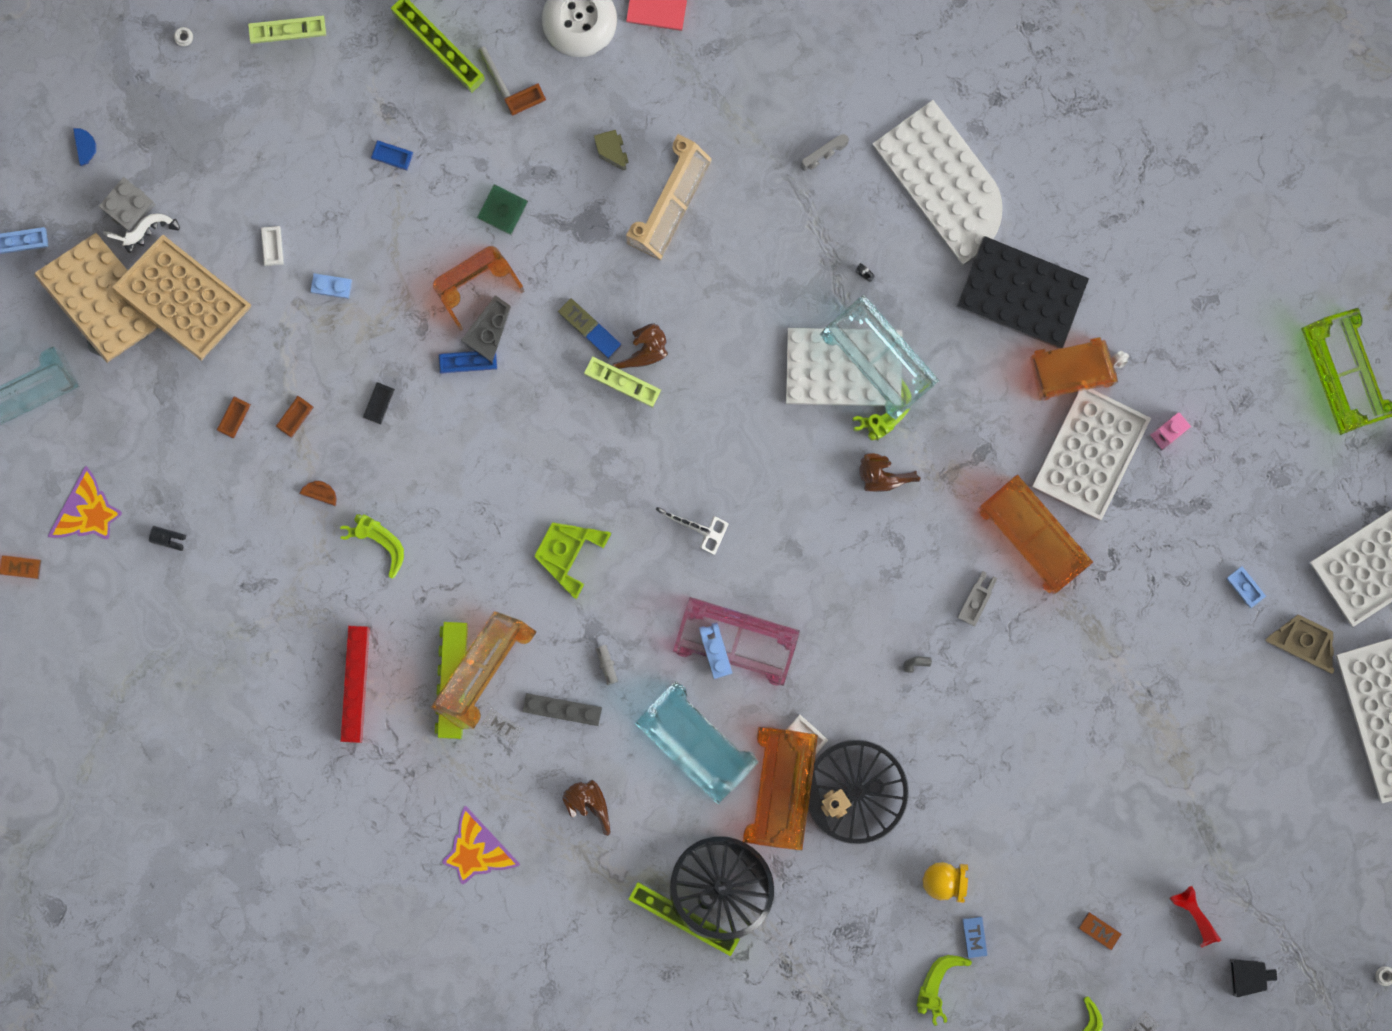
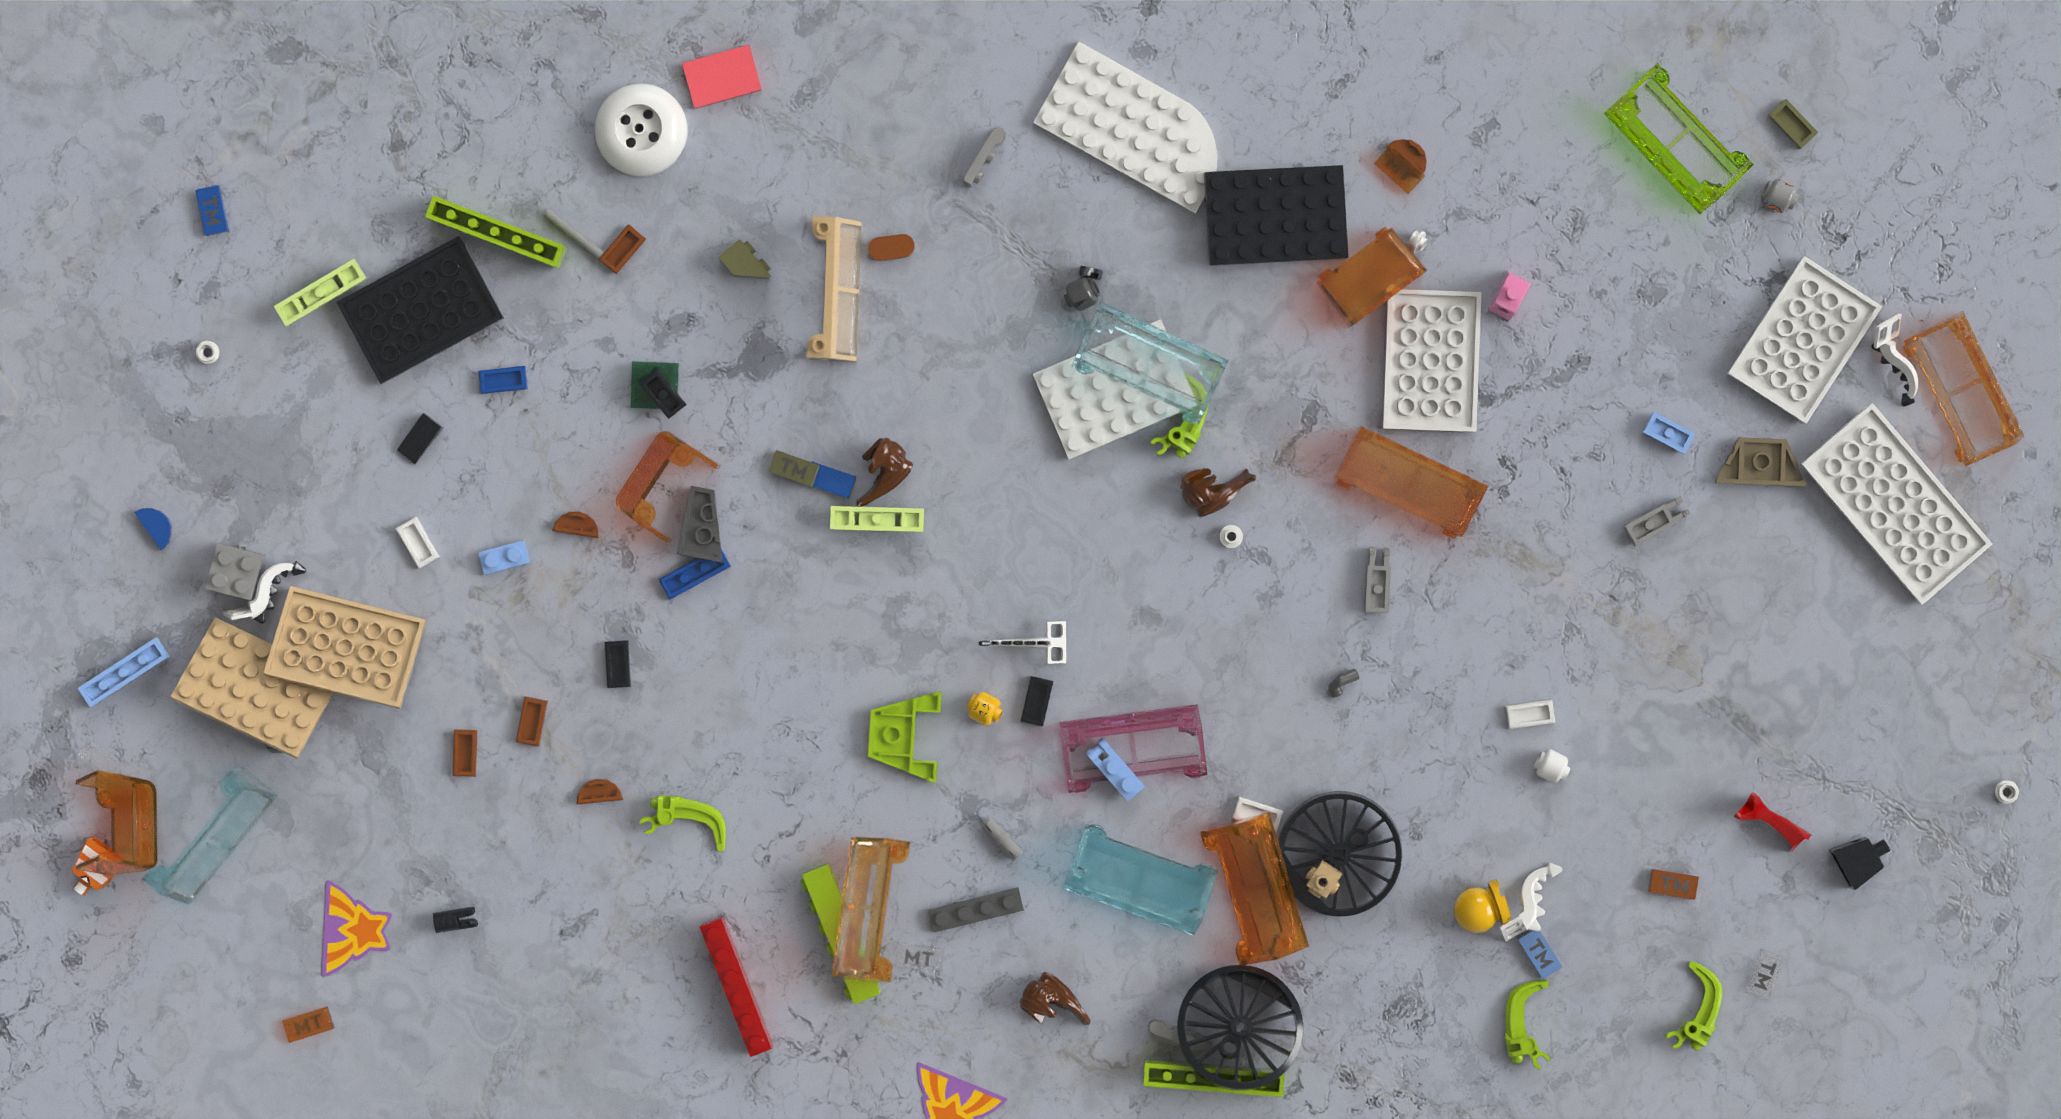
camera: 20 degrees left, 5 degrees up
(310, 170) = (420, 438): none -> black slope
(354, 76) = (420, 310): none -> black plate
(396, 285) = (576, 523): none -> dark orange tile
(505, 216) = (662, 392): none -> black slope
(638, 560) = (984, 708): none -> yellow head
(660, 863) = (1160, 1028): none -> light grey hinge
(680, 573) = (1036, 701): none -> black tile
(725, 188) = (891, 247): none -> dark orange tile
(851, 285) = (1082, 293): none -> dark grey head
(877, 520) = (1223, 536): none -> white plate
(985, 893) = (1529, 901): none -> white piece
(1047, 798) = (1552, 766): none -> white head
(1048, 752) = (1530, 714): none -> white tile
(1129, 300) = (1399, 169): none -> clear orange tile
(1143, 293) = (1412, 152): none -> dark orange tile
(1205, 649) = (1654, 522): none -> light grey hinge

